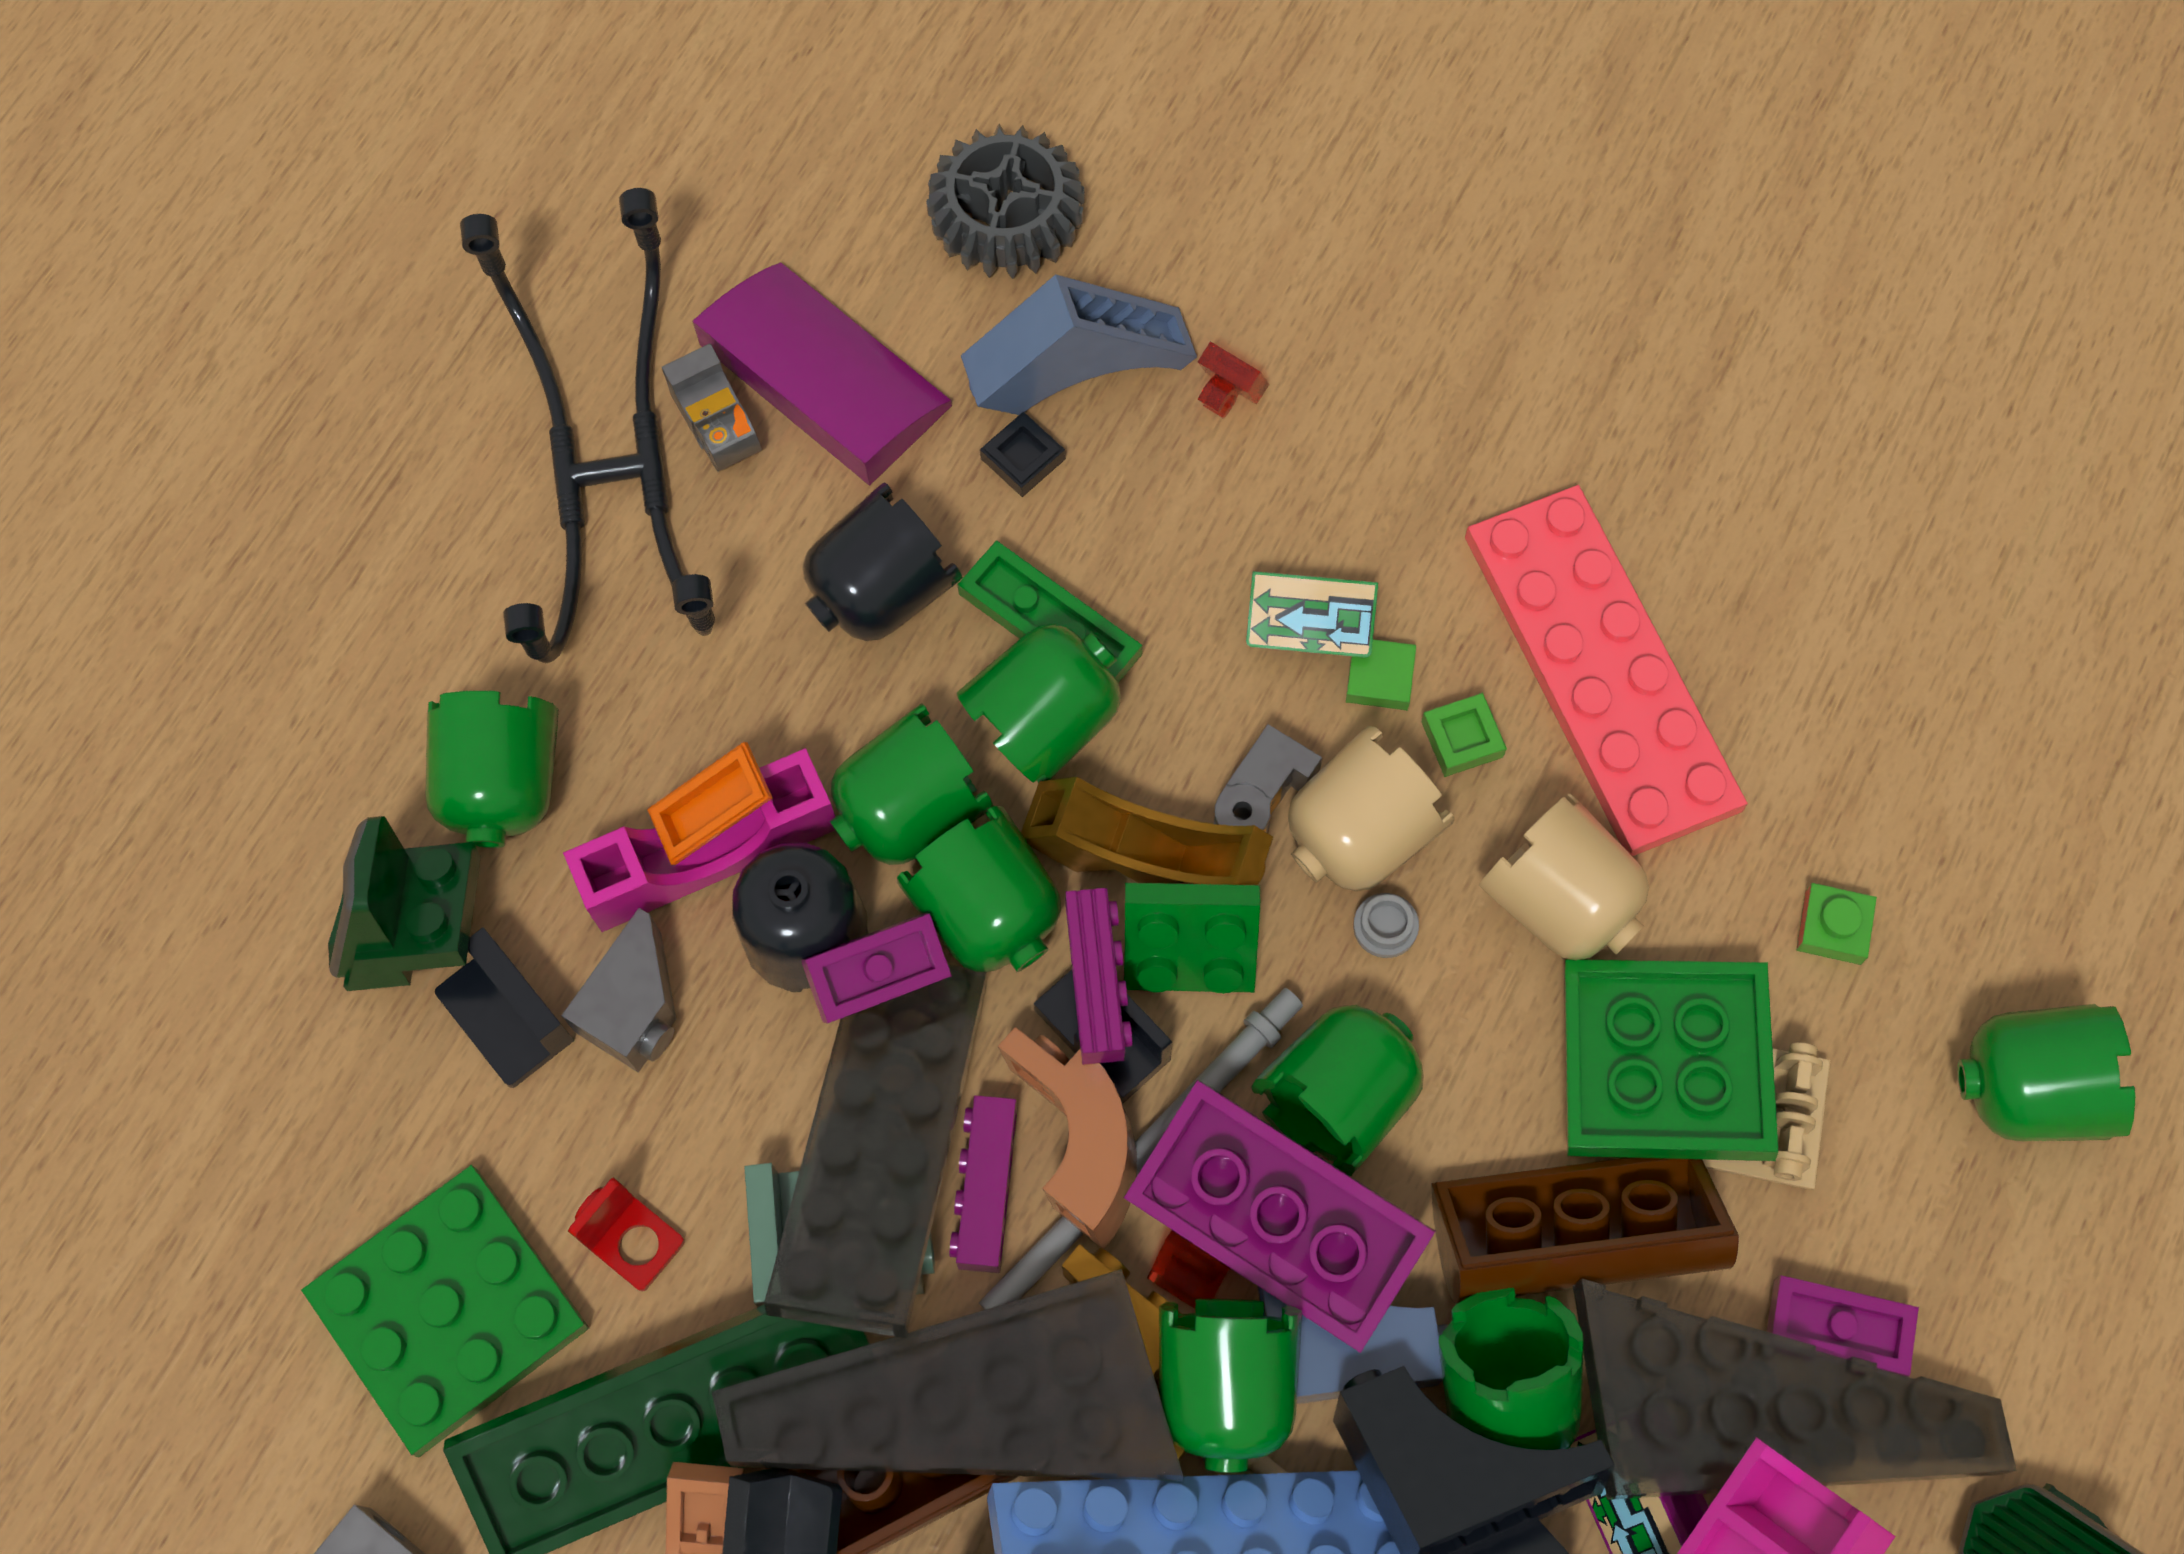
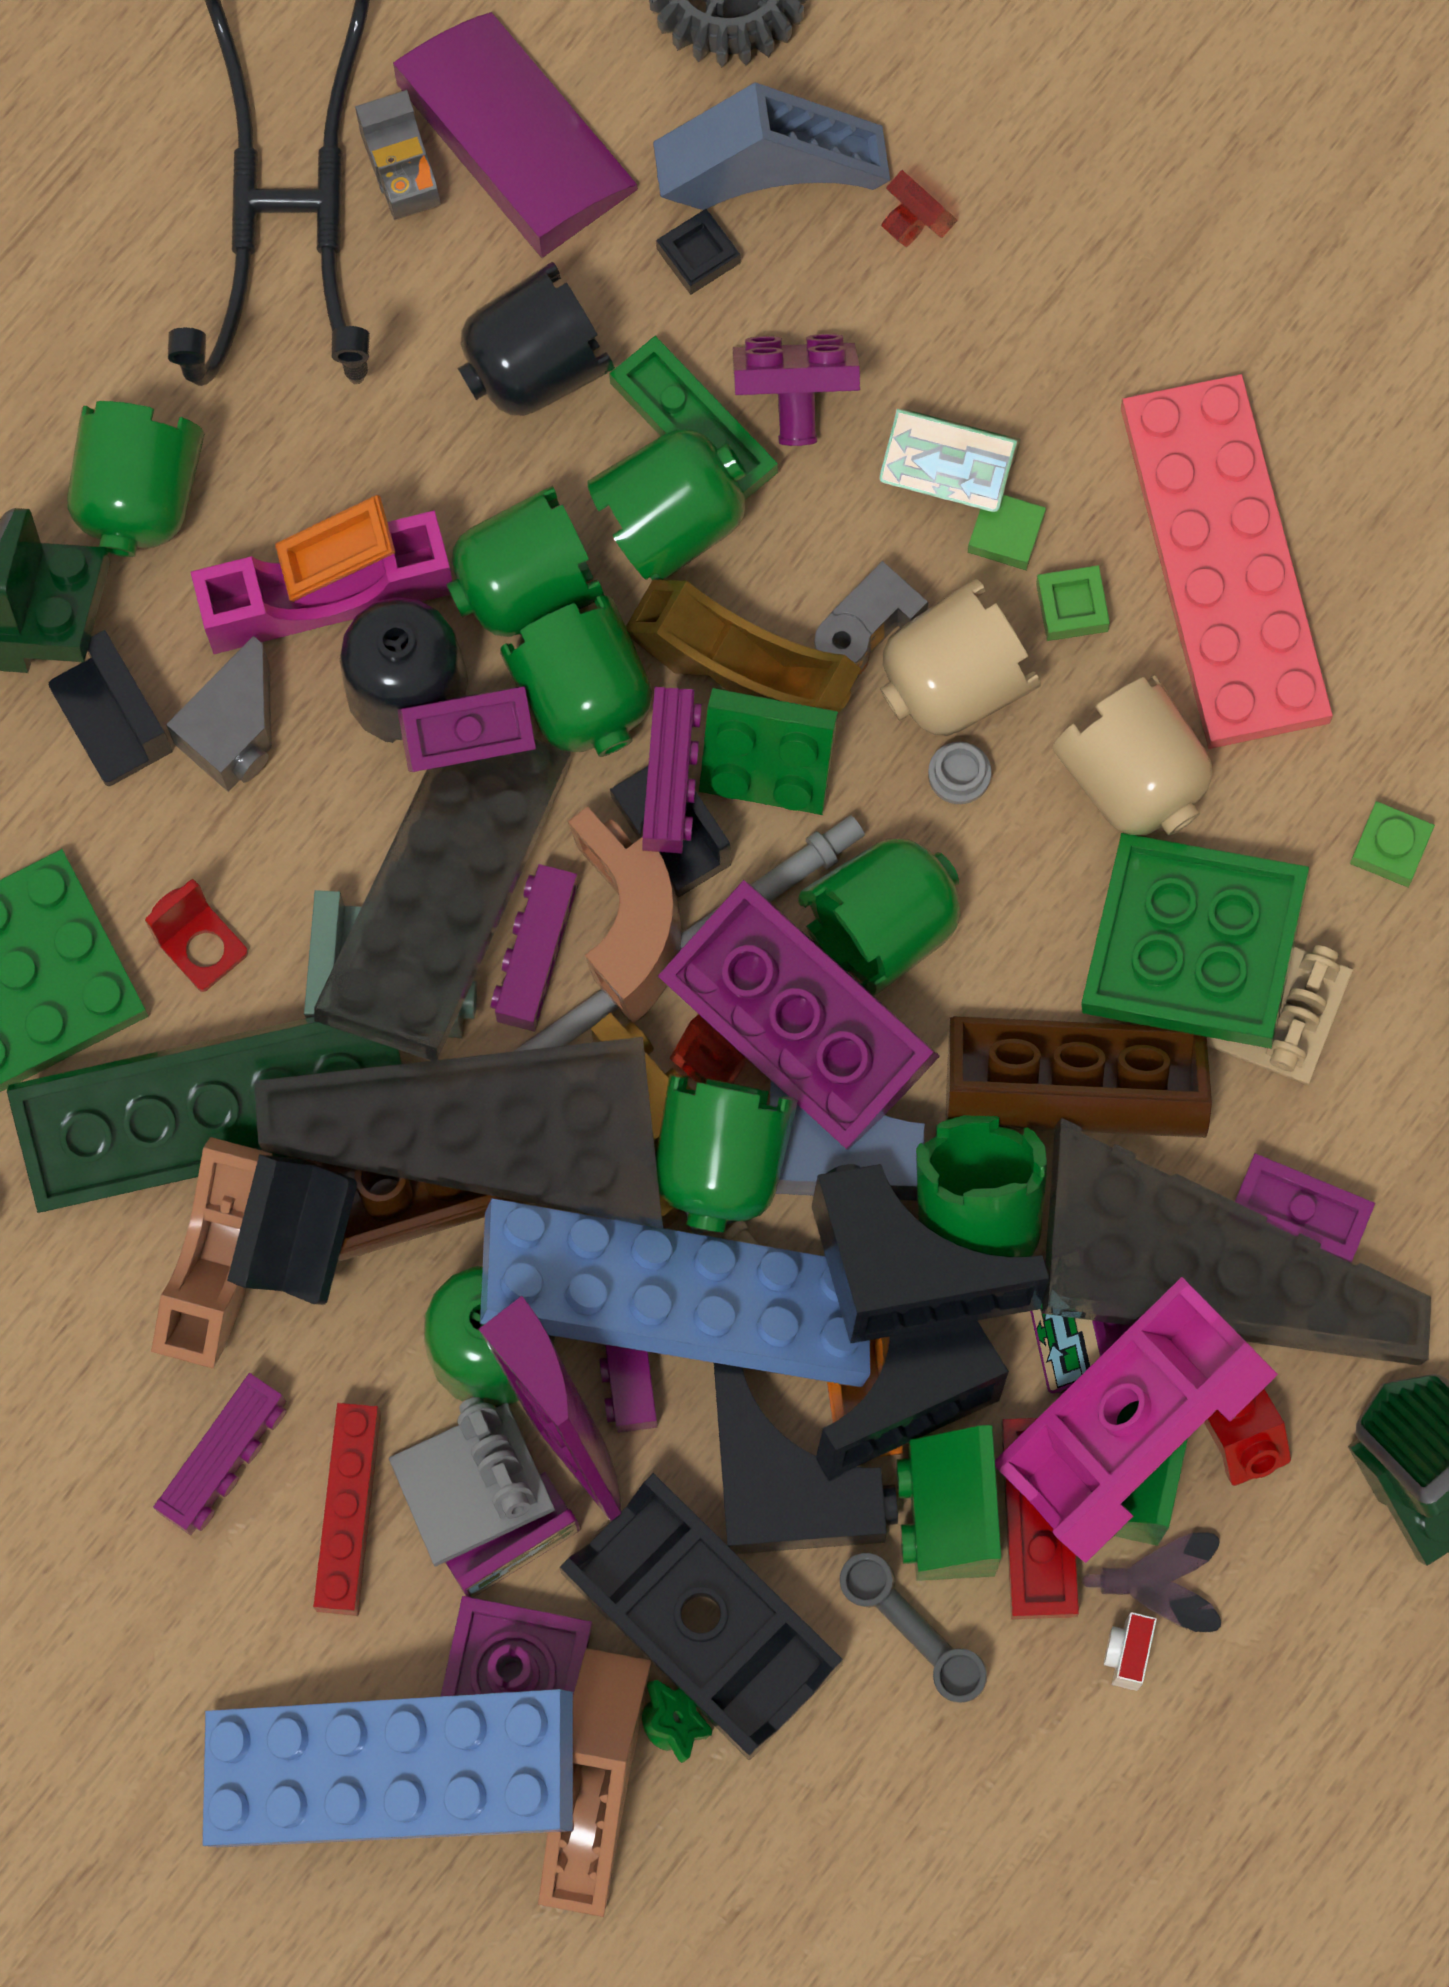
camera: 10 degrees right, 5 degrees up
(1144, 557) = (796, 375): none -> magenta plate

